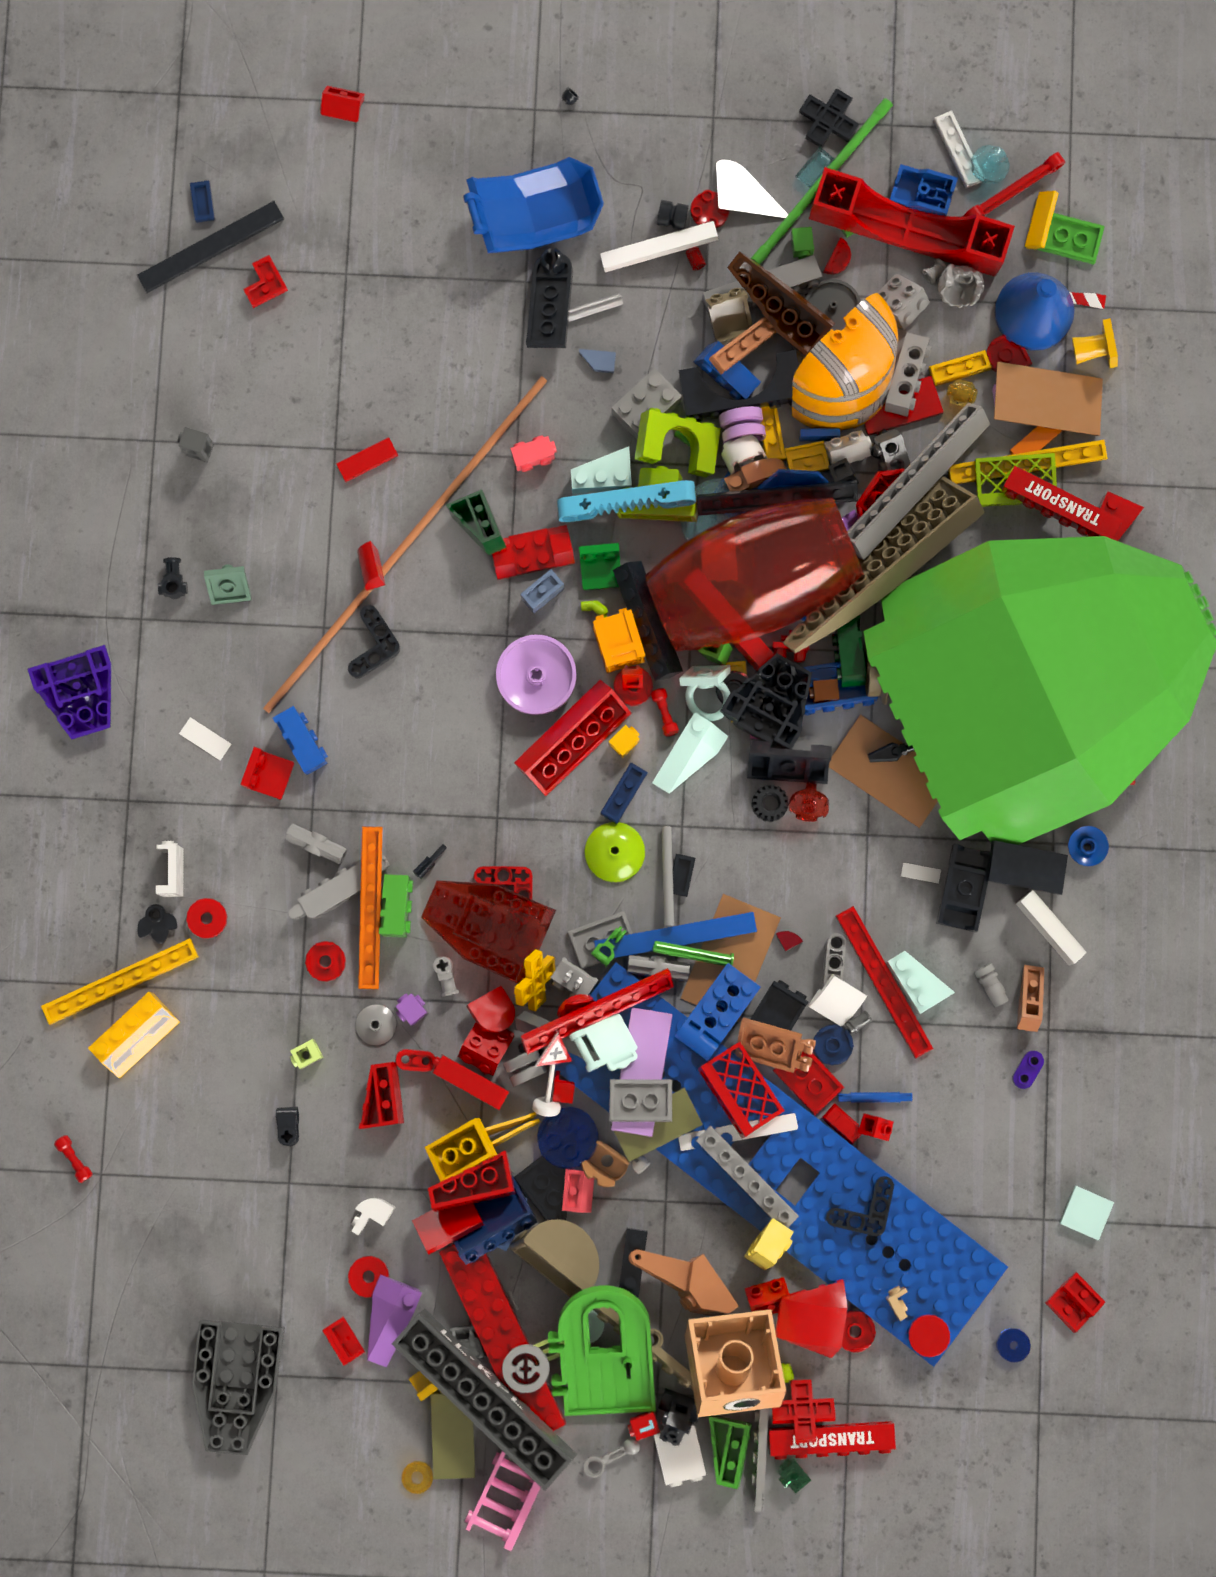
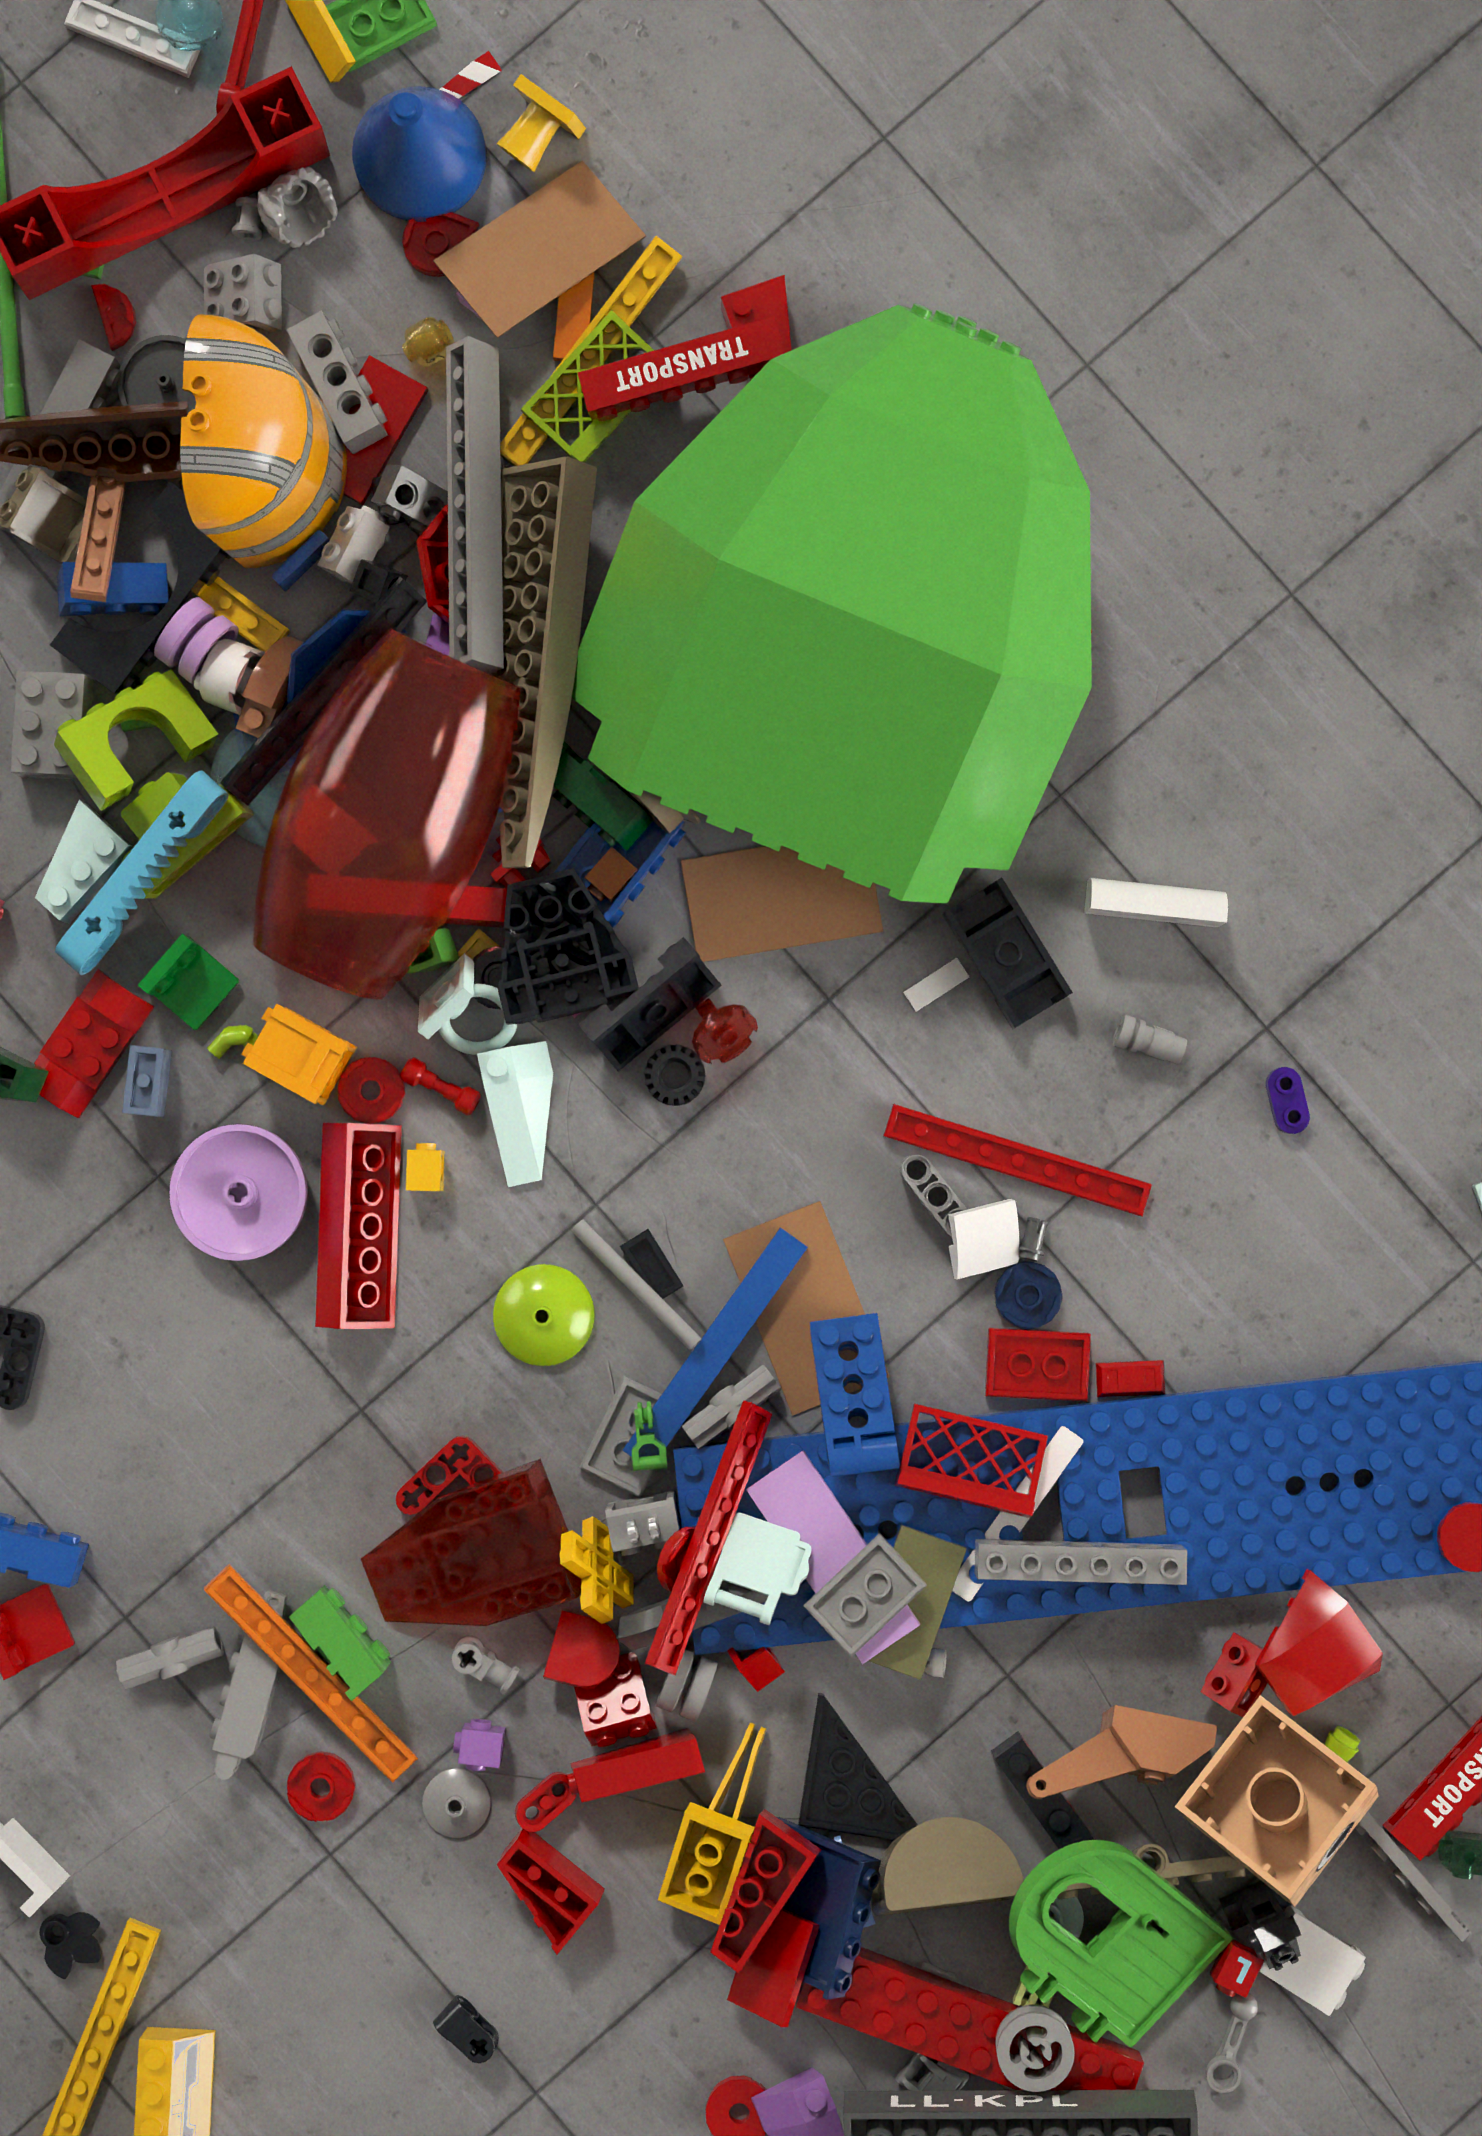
camera: 45 degrees left, 5 degrees up
(195, 914) = (112, 1891): red tile -> none
(297, 1054) = (411, 1909): yellowish green brick -> none
(372, 1208) = (671, 2026): white brick -> none
(428, 863) = (330, 1547): black axle -> none
(554, 1054) = (706, 1640): white piece -> none
(568, 1138) = (818, 1716): clear blue tile -> none
(577, 1192) = (892, 1767): coral panel -> none
(605, 1175) = (894, 1721): medium nougat piece -> none
(623, 793) = (485, 1233): dark blue tile -> none
(632, 677) = (359, 1083): red tile -> none
(656, 644) = (363, 1021): black brick -> none
(693, 953) = (756, 1349): bright green axle -> none
(730, 1446) = (1363, 1898): bright green wedge -> none
(769, 1245) = (1184, 1615): light yellow wedge -> none
(774, 1046) = (962, 1367): nougat tile -> none
(780, 1006) = (925, 1319): black panel -> none
(788, 939) = (855, 1219): dark red tile -> none
(802, 242) = (49, 336): bright green brick -> none
(804, 1411) = (1410, 1769): red plate -> none
(807, 457) = (314, 602): yellow plate -> none
(867, 1334) = (1397, 1607): red tile -> none
(873, 1215) = (1271, 1457): black beam -> none
(874, 1097) = (1138, 1310): blue piece -> none
(876, 1127) = (1174, 1347): red brick -> none
(889, 752) = (759, 876): black piece -> none
(898, 1306) = (1404, 1539): tan bracket -> none
(917, 982) = (1059, 1124): light aqua wedge -> none
(923, 190) = (137, 127): blue piece -> none
(960, 368) = (395, 312): yellow tile -> none
(1026, 867) = (1058, 858): black tile -> none
(1031, 999) = (1212, 1012): nougat slope -> none
(1098, 846) = (1118, 748): blue dish -> none

